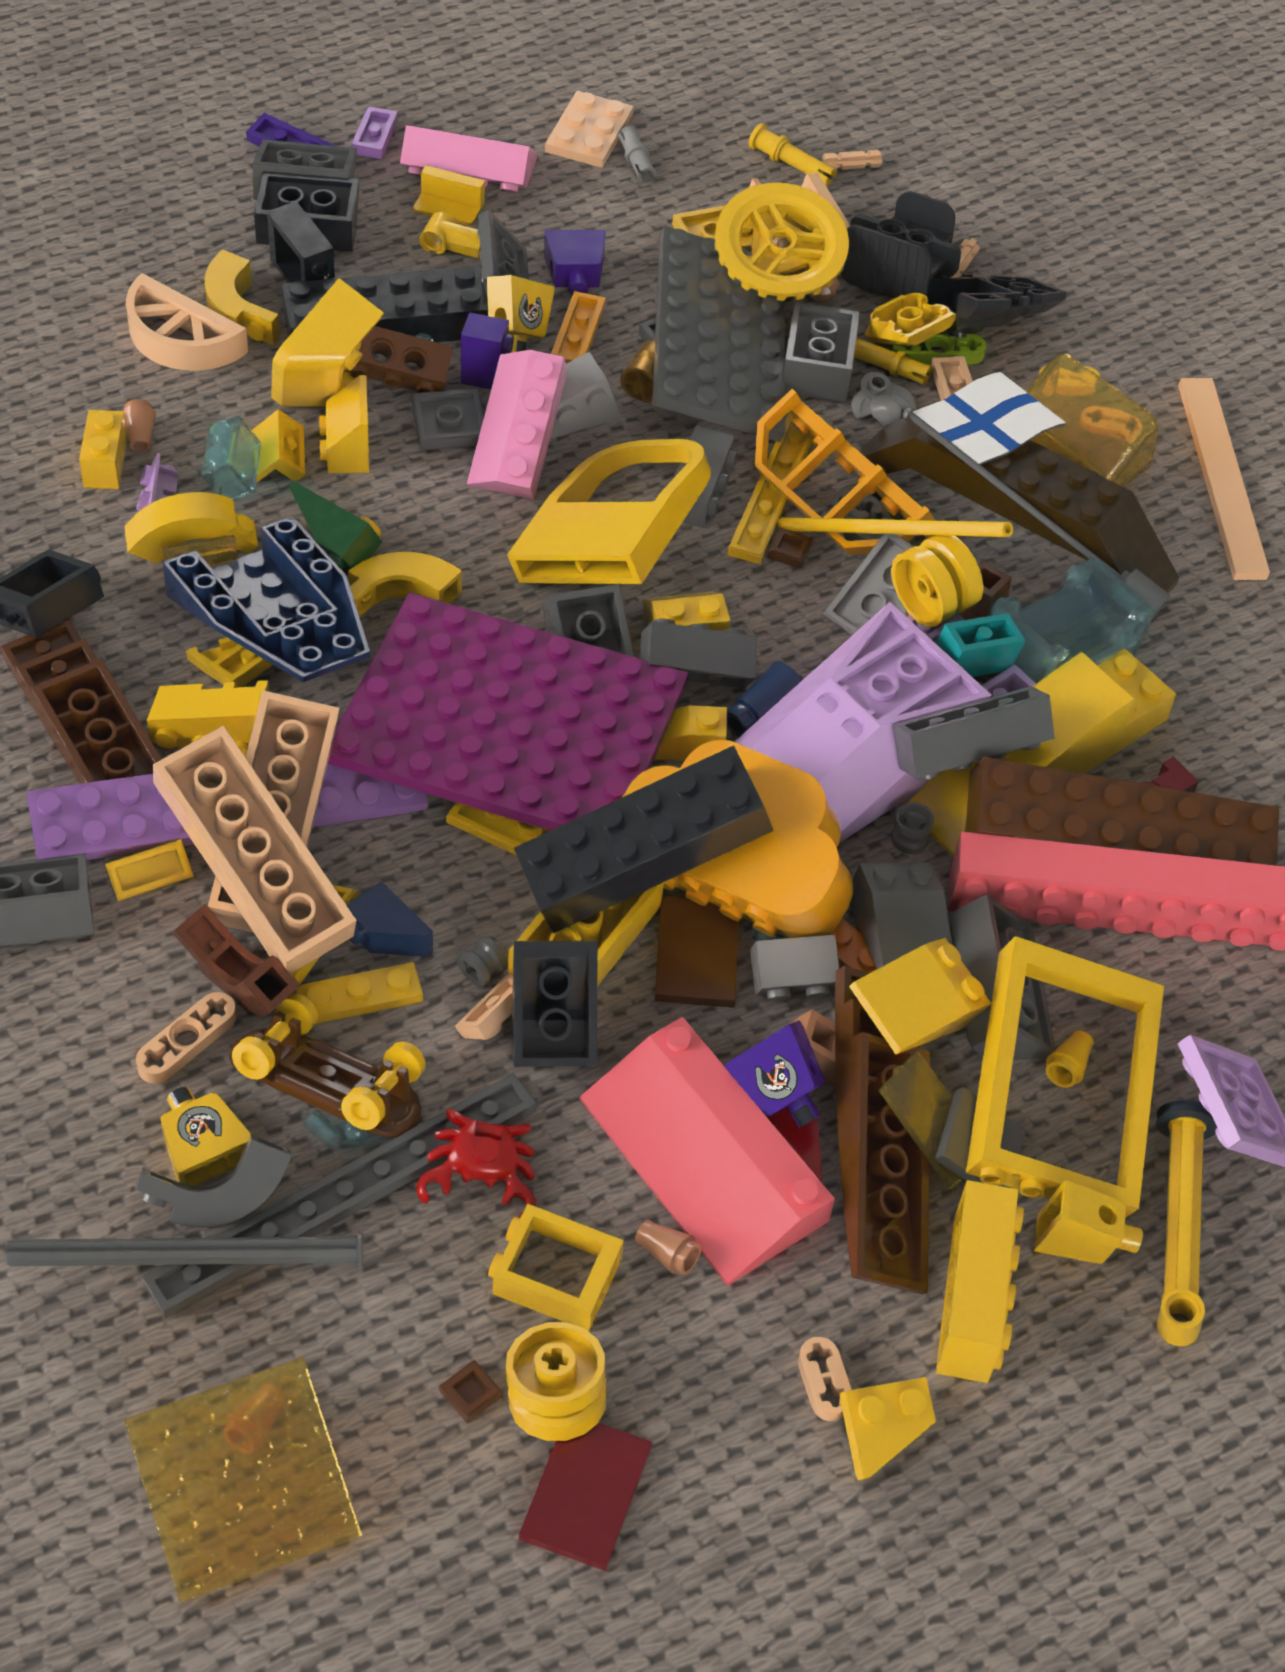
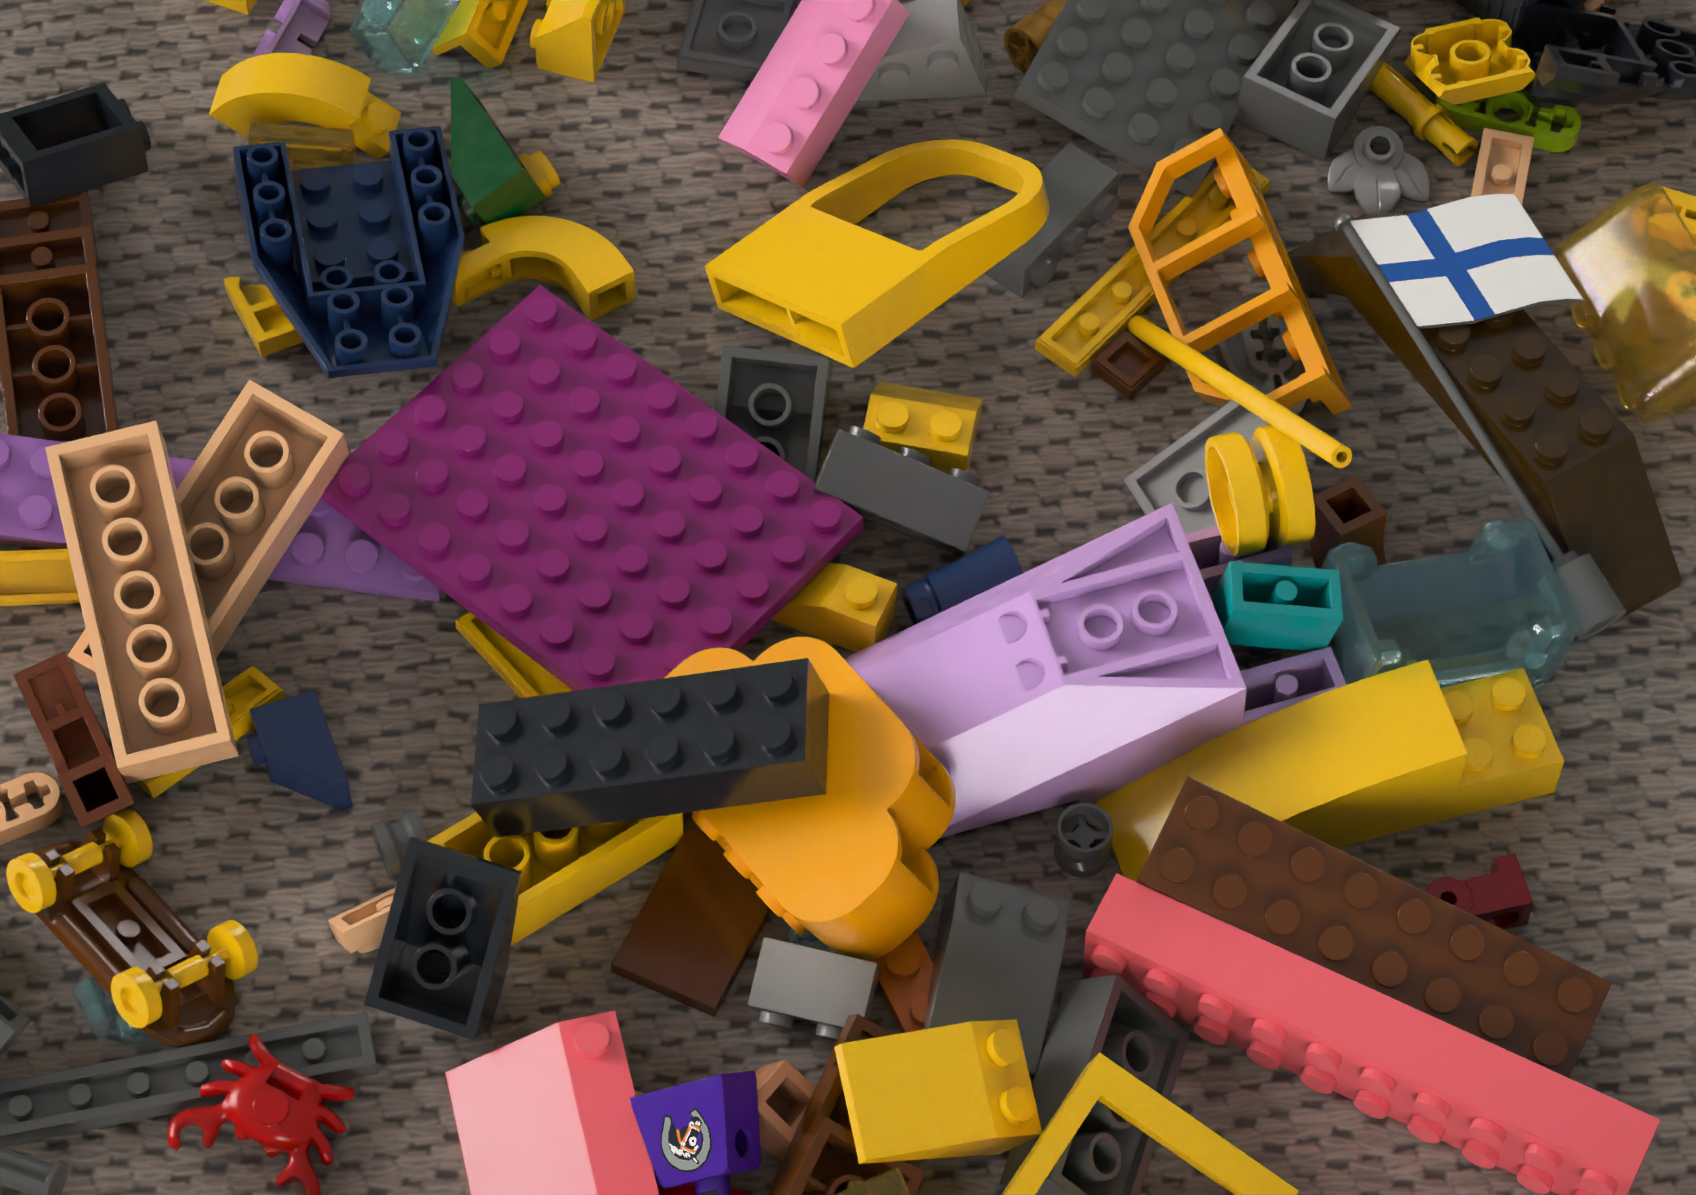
camera: 25 degrees right, 5 degrees up
(190, 712) = (189, 382): yellow wedge -> none
(364, 992) = (230, 834): yellow plate -> none
(974, 731) = (1198, 735): dark grey brick -> none

